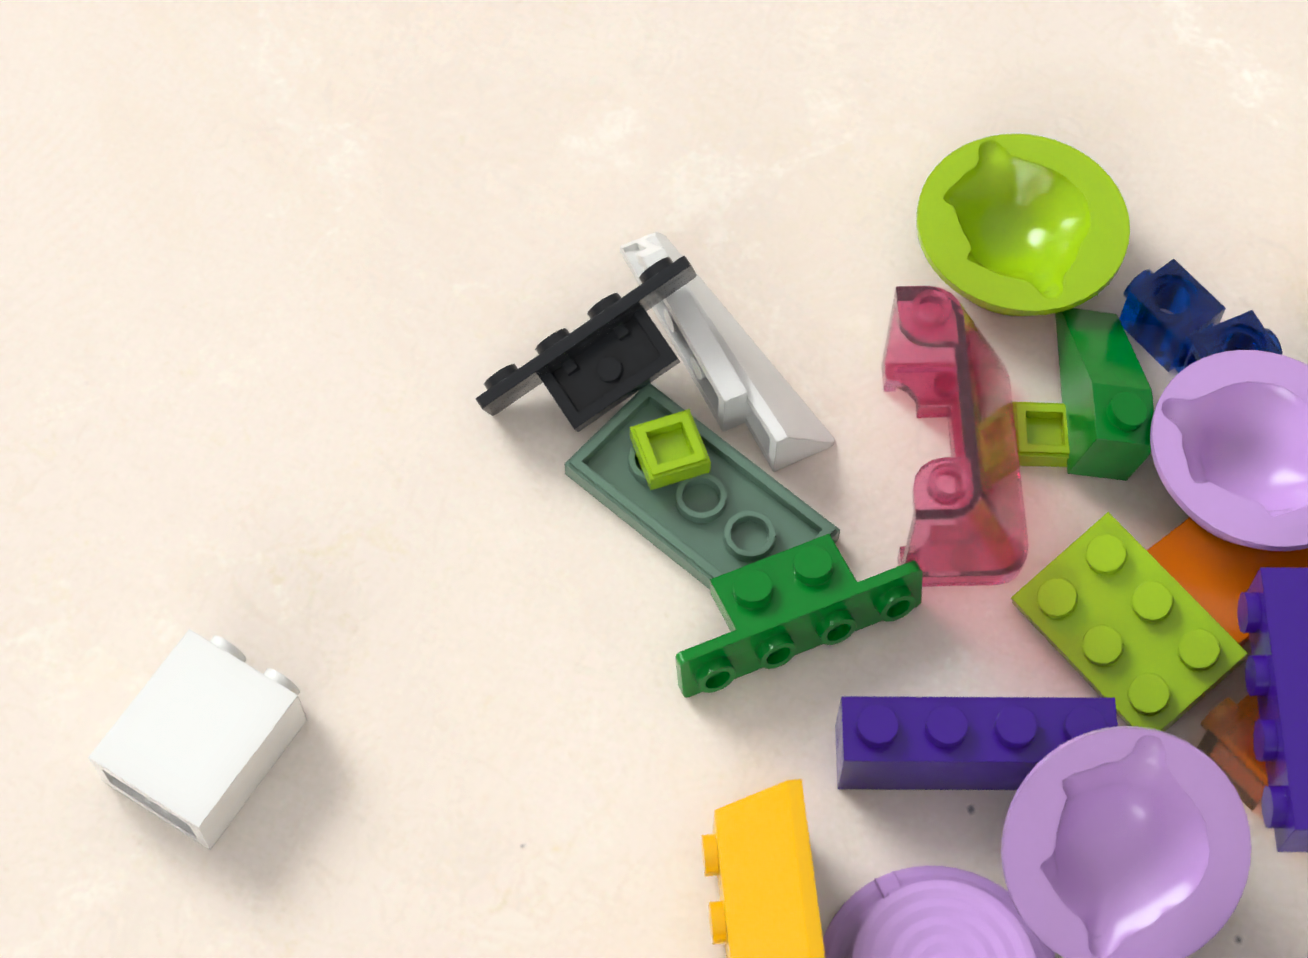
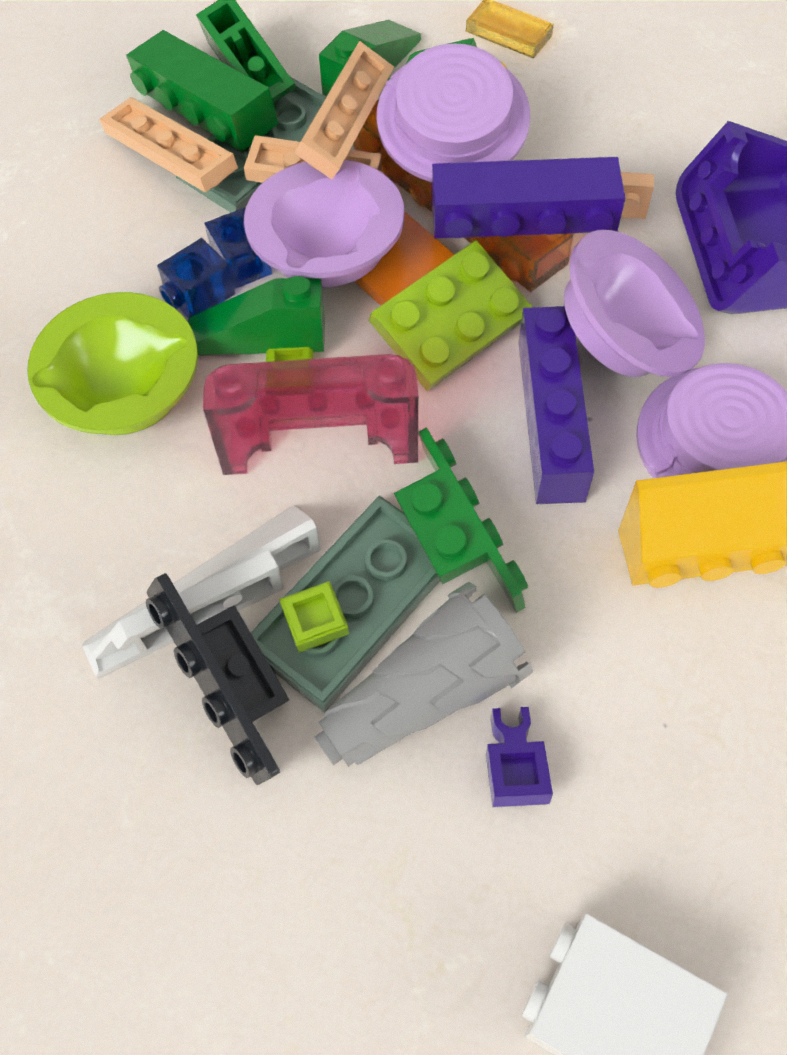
camera: 90 degrees left, 0 degrees up
(474, 660) = (517, 767): none -> dark purple plate
(593, 579) = (445, 665): none -> light grey cone

